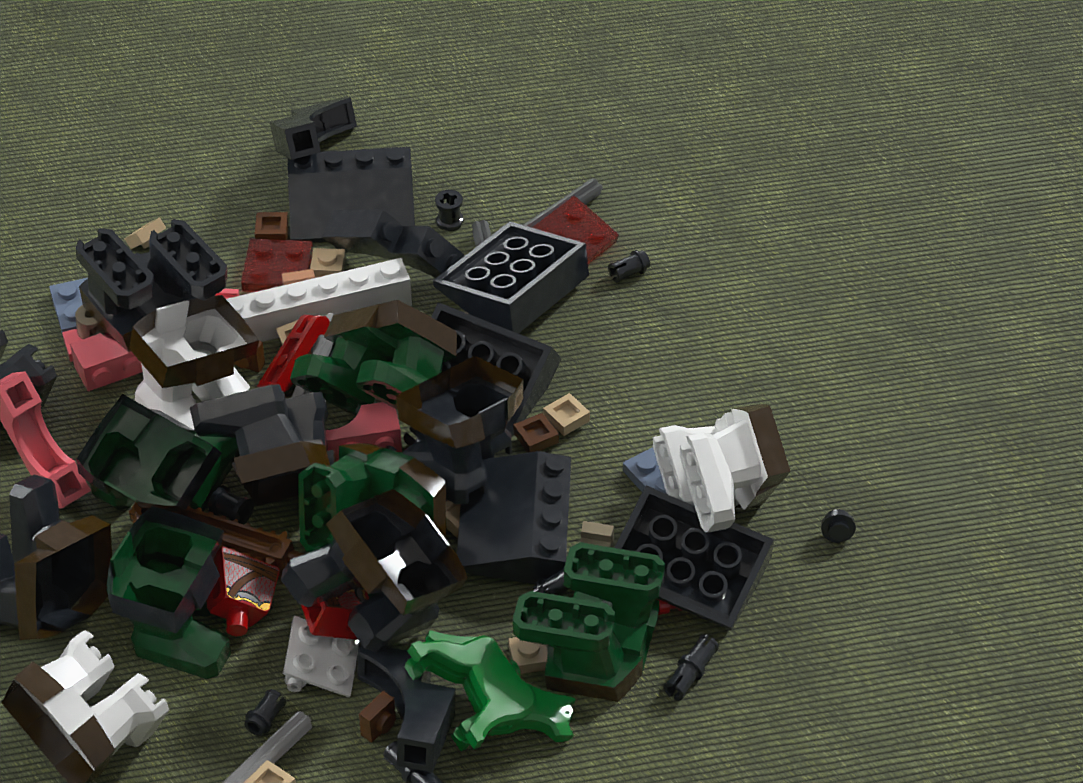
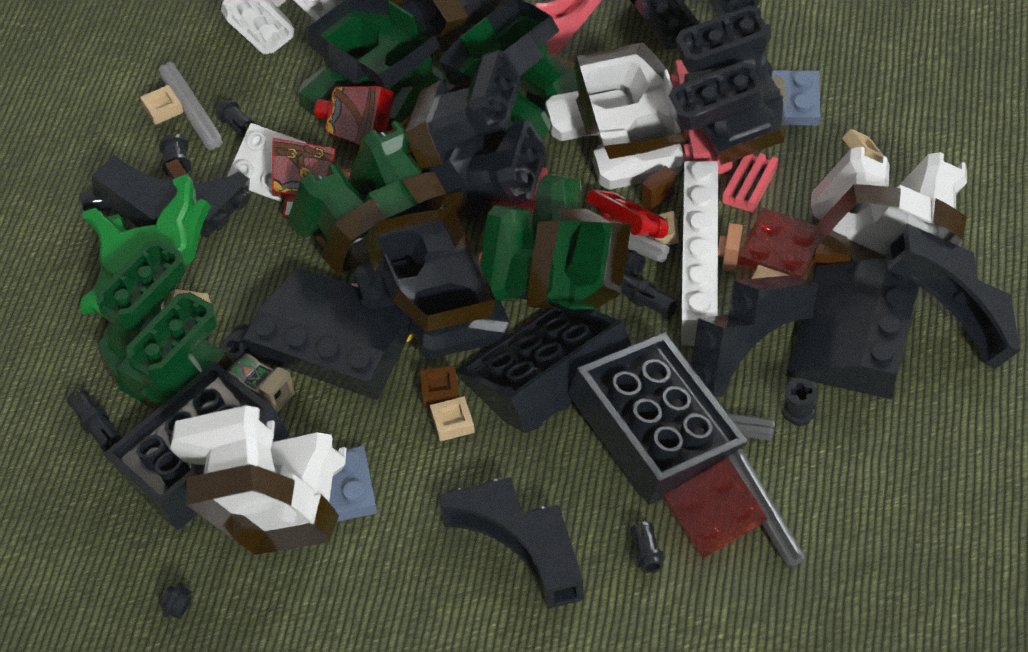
camera: 115 degrees right, 5 degrees up
(240, 174) = (863, 209): none -> white piece
(340, 739) = (170, 150): none -> black bush
(390, 552) = (266, 166): black piece -> none
(654, 327) = (534, 536): none -> black arch

